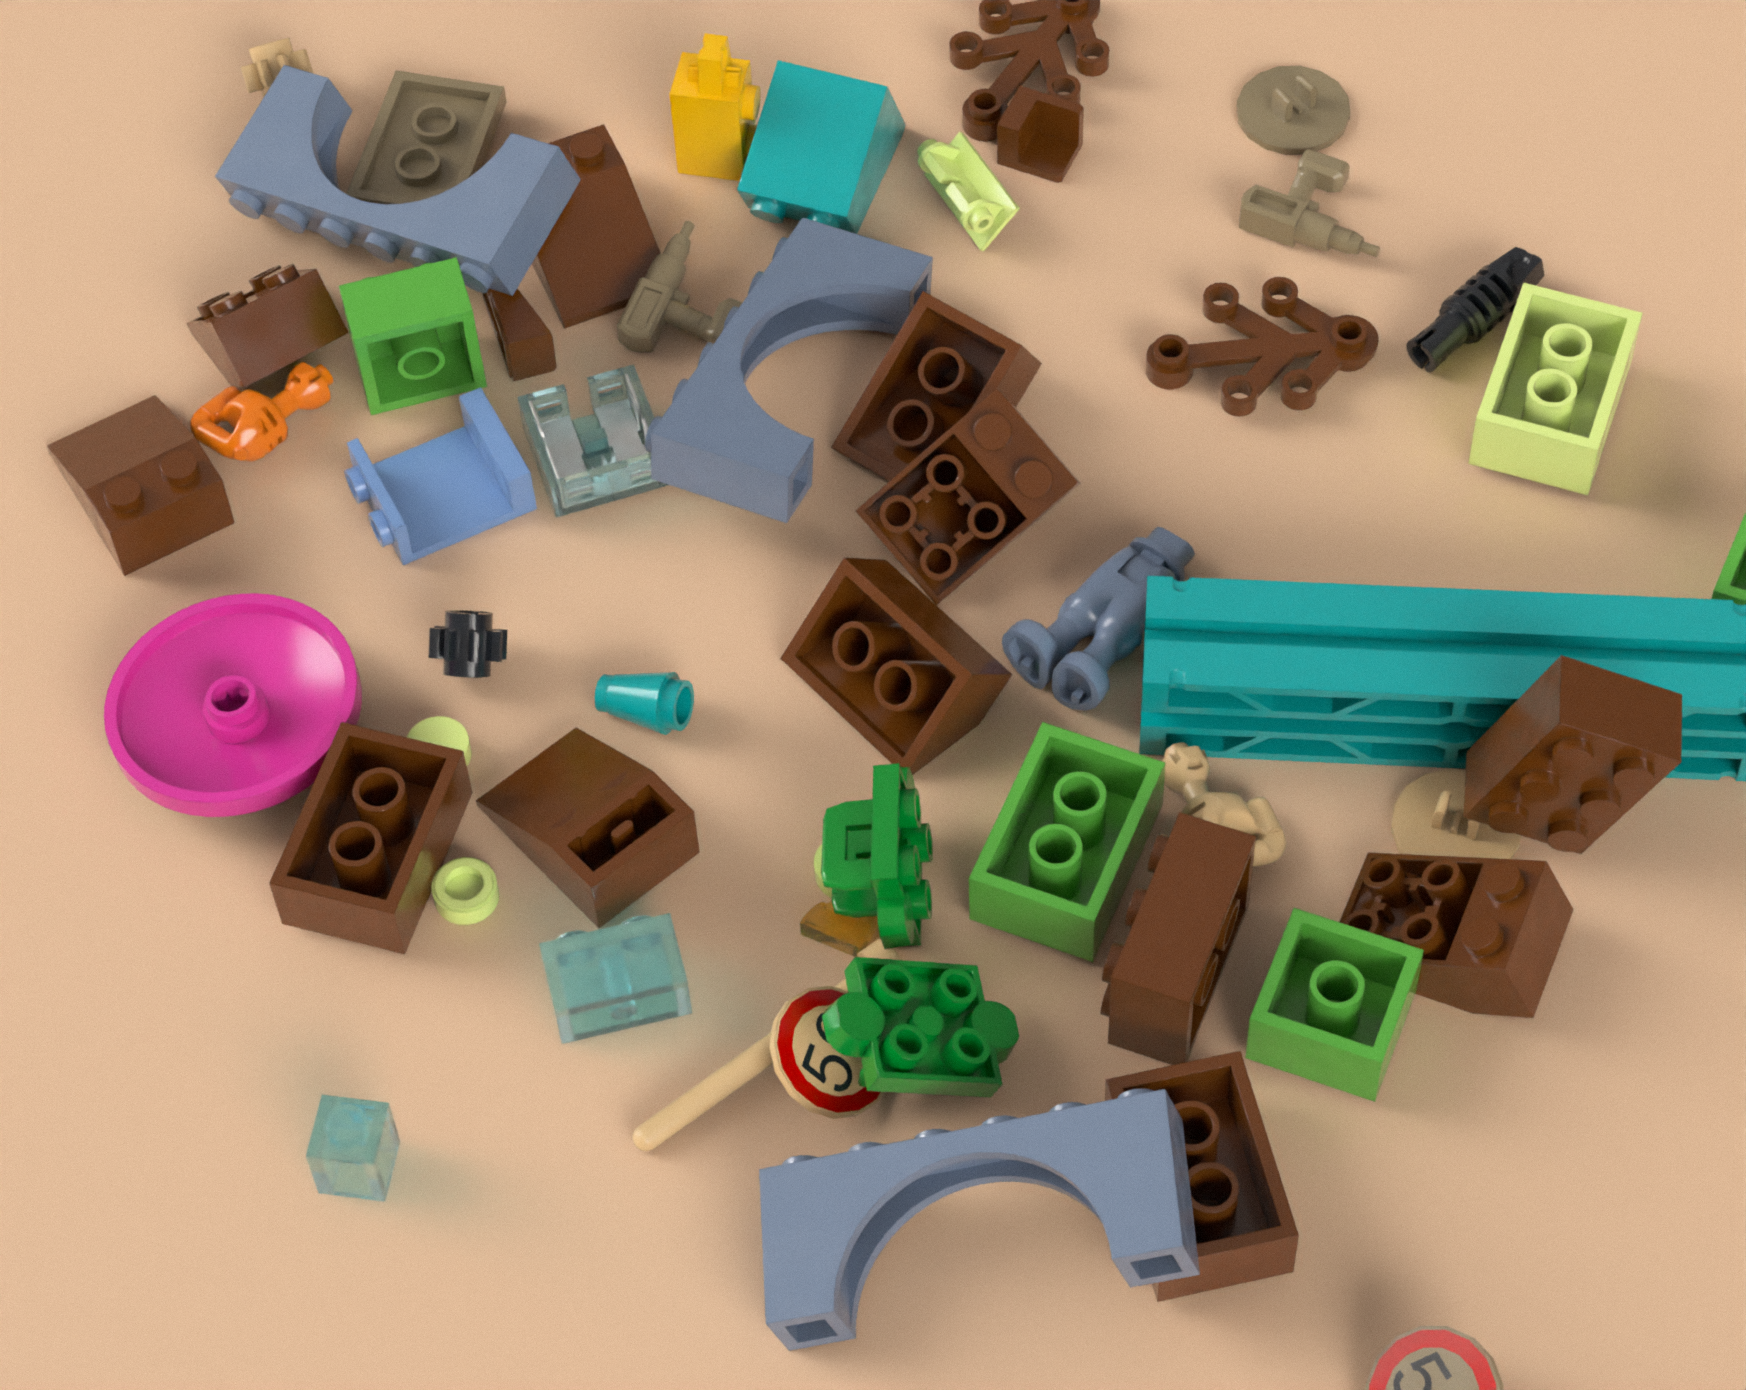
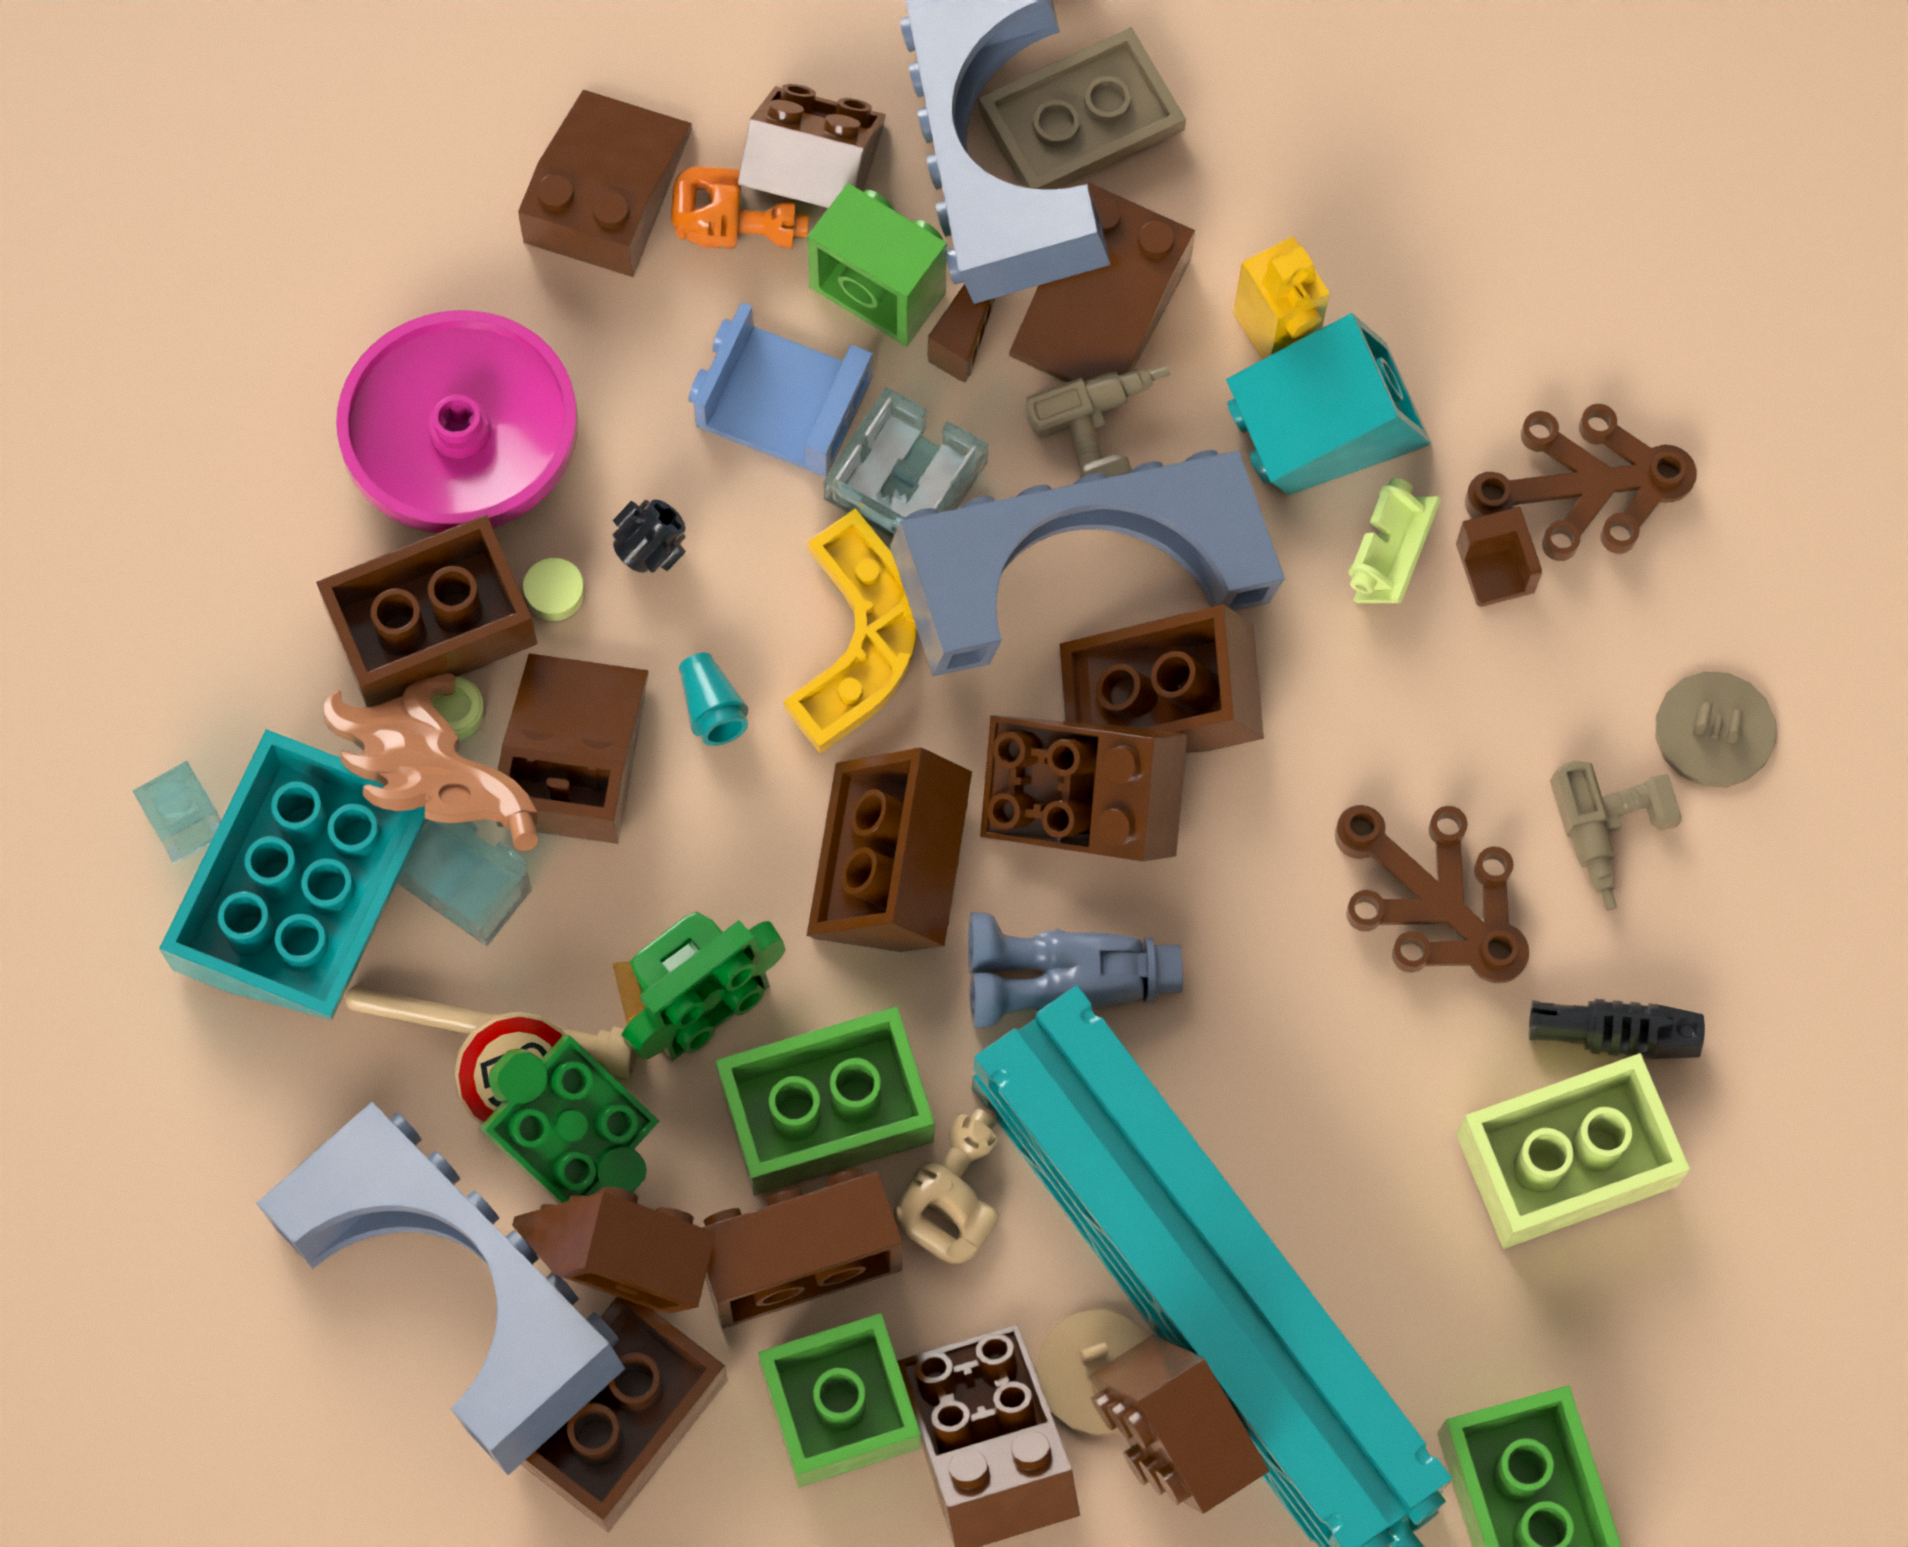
camera: 45 degrees right, 15 degrees up
(510, 1089) = (291, 881): none -> teal slope
(511, 913) = (417, 762): none -> nougat piece
(702, 545) = (882, 639): none -> yellow plate
(1079, 1032) = (622, 1248): none -> reddish brown slope

